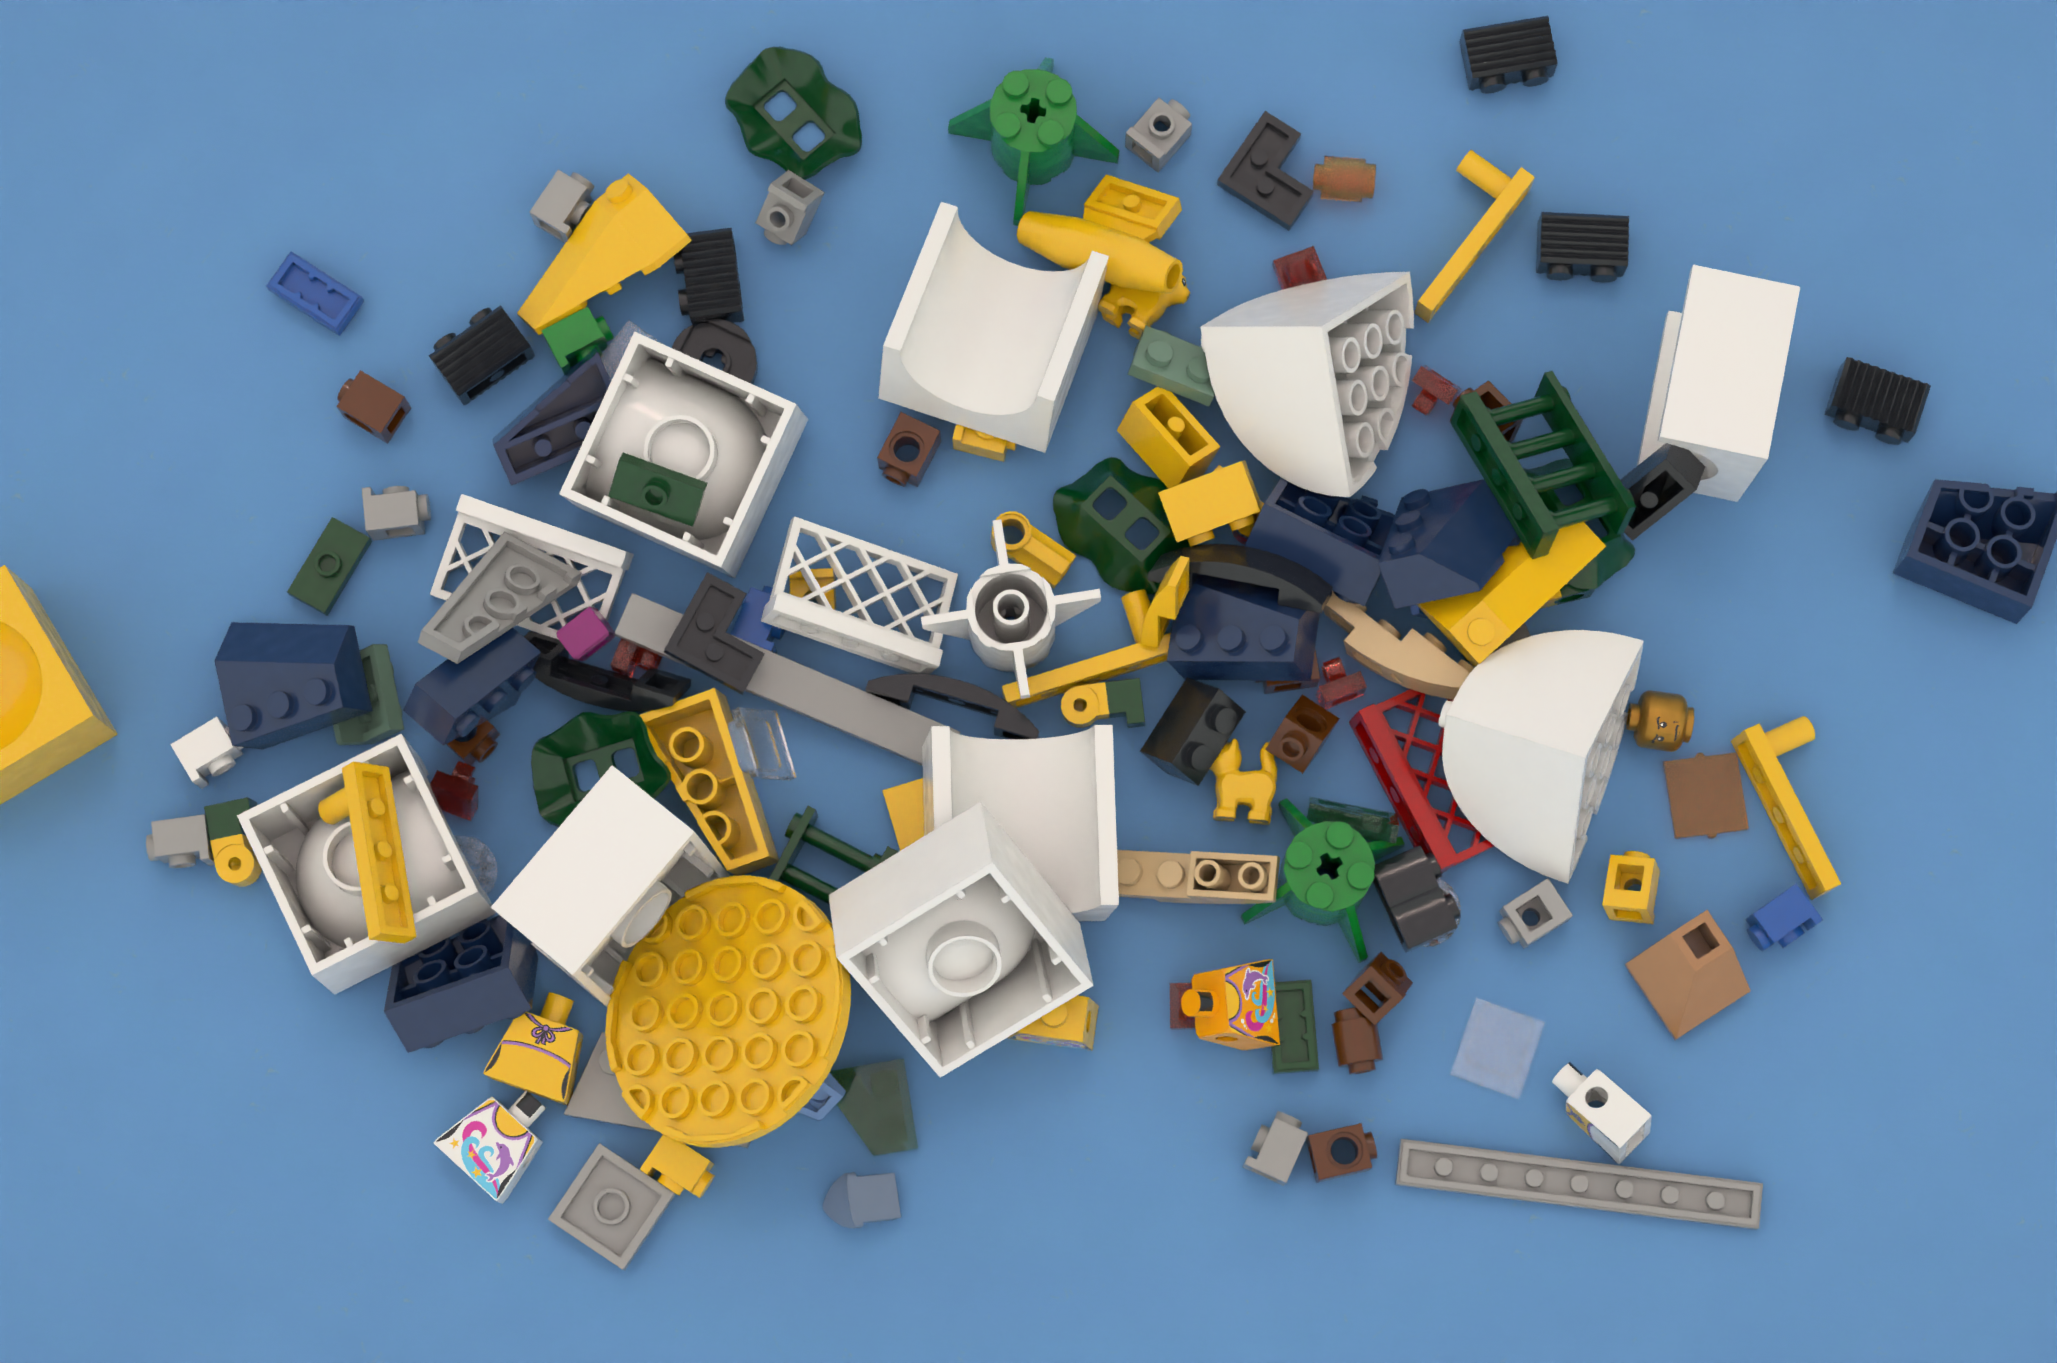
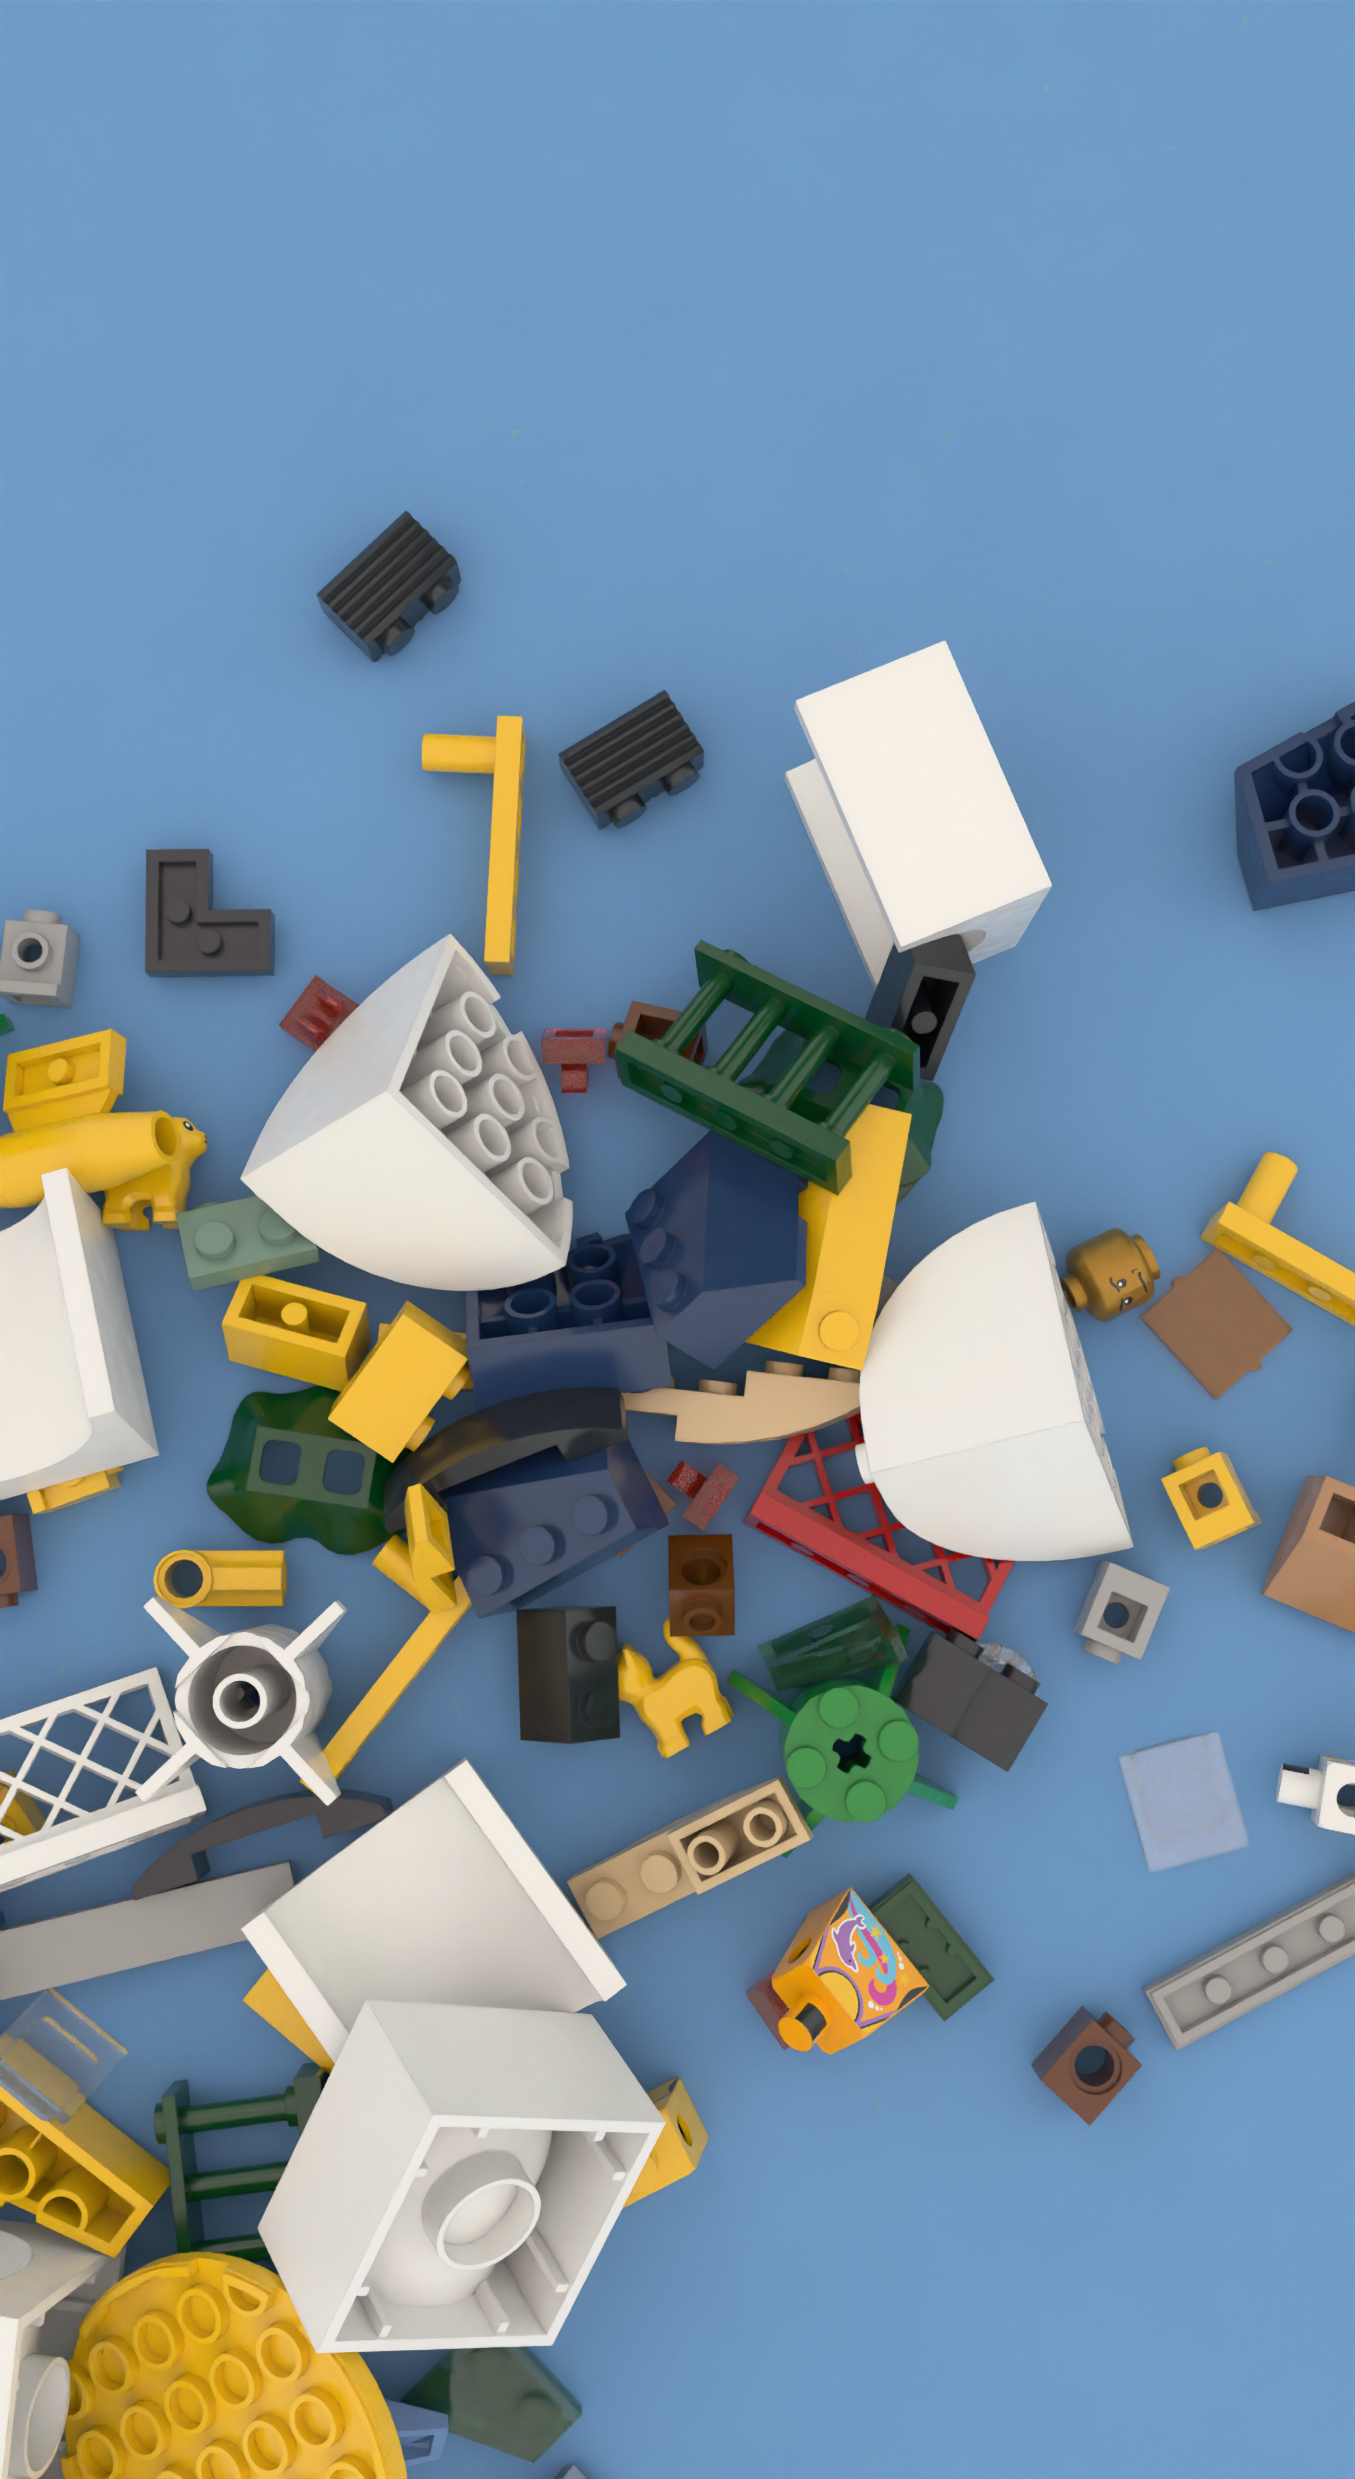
camera: 35 degrees left, 5 degrees up
(1104, 700) = (433, 1706): leg -> none
(1277, 1148) = (1011, 2113): light grey brick -> none
(1344, 179) = (297, 869): clear orange brick -> none
(1356, 1041) = (1014, 1911): reddish brown brick -> none
(1385, 980) = (999, 1816): reddish brown brick -> none
(1877, 401) = (1100, 718): black brick -> none

